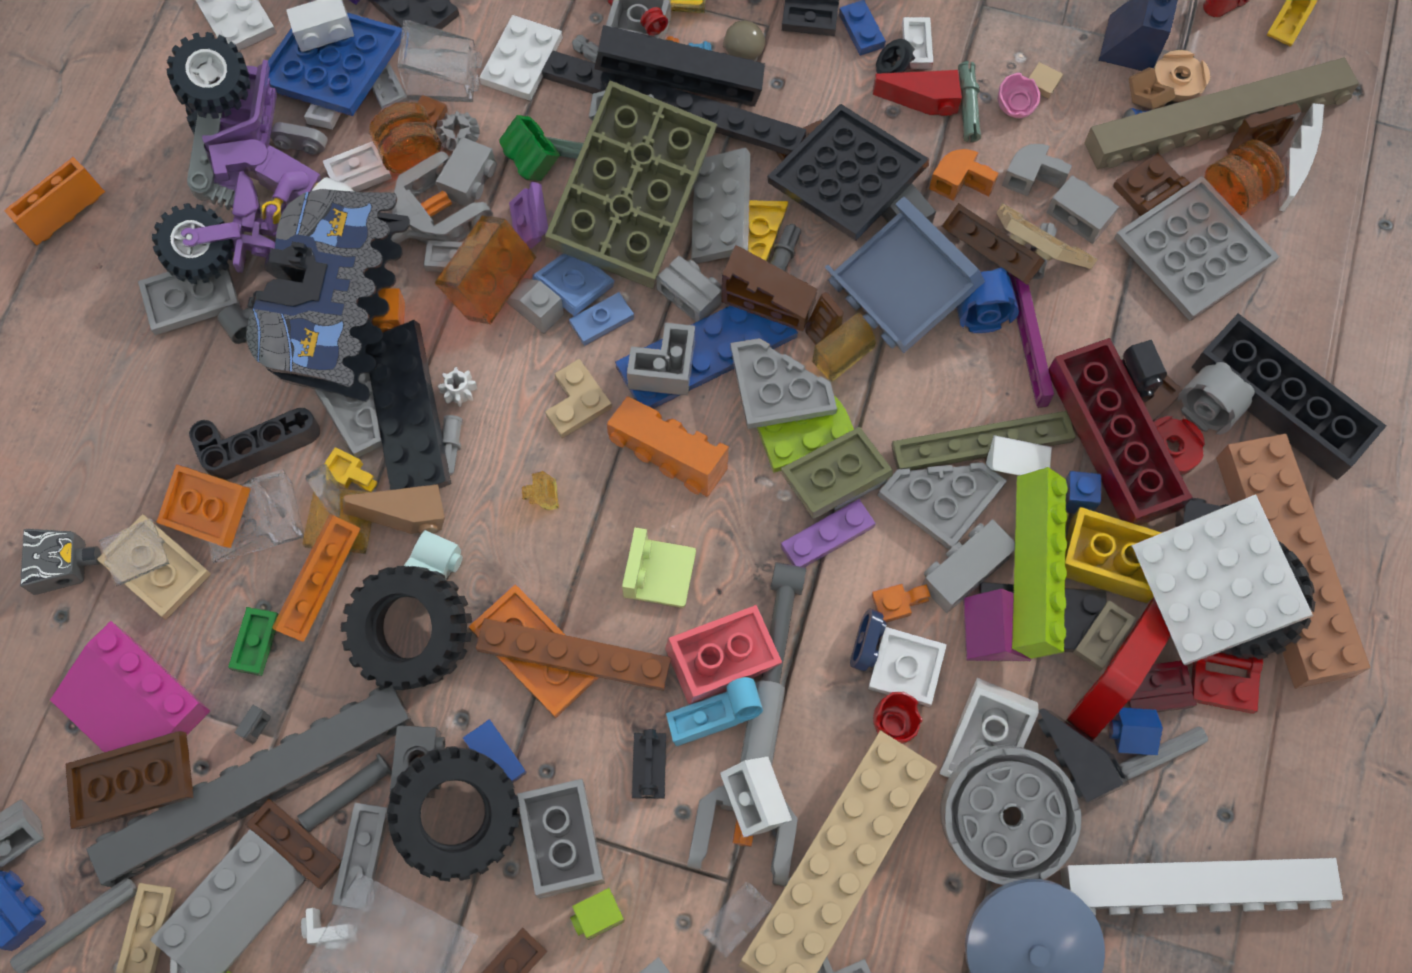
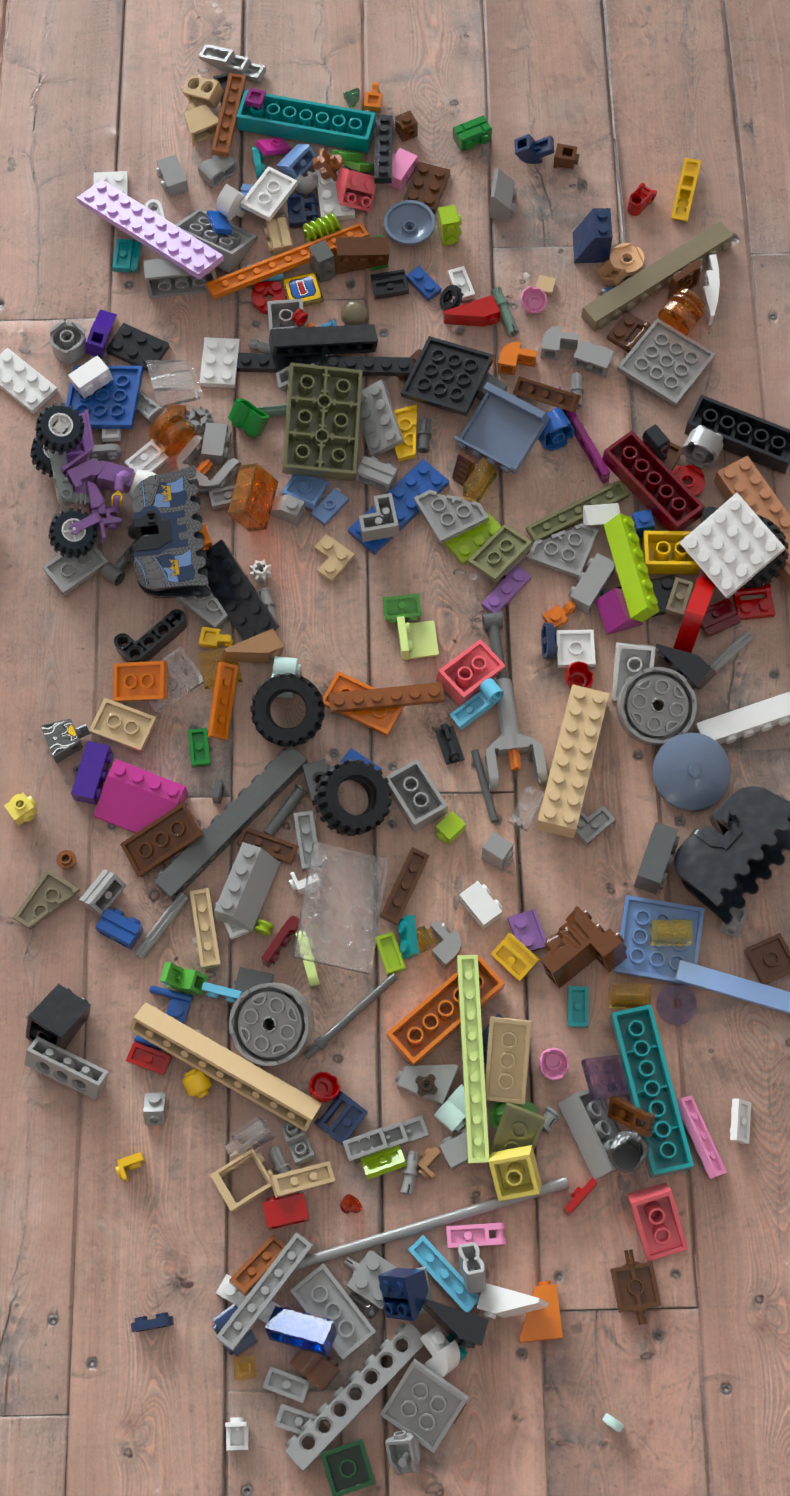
camera: 15 degrees left, 0 degrees up
(72, 627) = (92, 772): none -> dark purple brick
(134, 552) = (109, 719): clear piece -> none
(325, 488) = (210, 649): clear slope -> none
(529, 214) = (265, 456): medium lavender plate -> none
(542, 491) = (333, 615): clear yellow tile -> none
(653, 511) = (400, 606): none -> bright green bracket
(669, 446) = (398, 567): orange wedge -> none
(681, 856) = (484, 786): none -> dark grey bar
(755, 796) = (516, 737): white brick -> none
(766, 290) = (424, 461): reddish brown wedge -> none
(1046, 244) = (579, 386): tan wing -> none
(1136, 731) = (712, 643): blue brick -> none

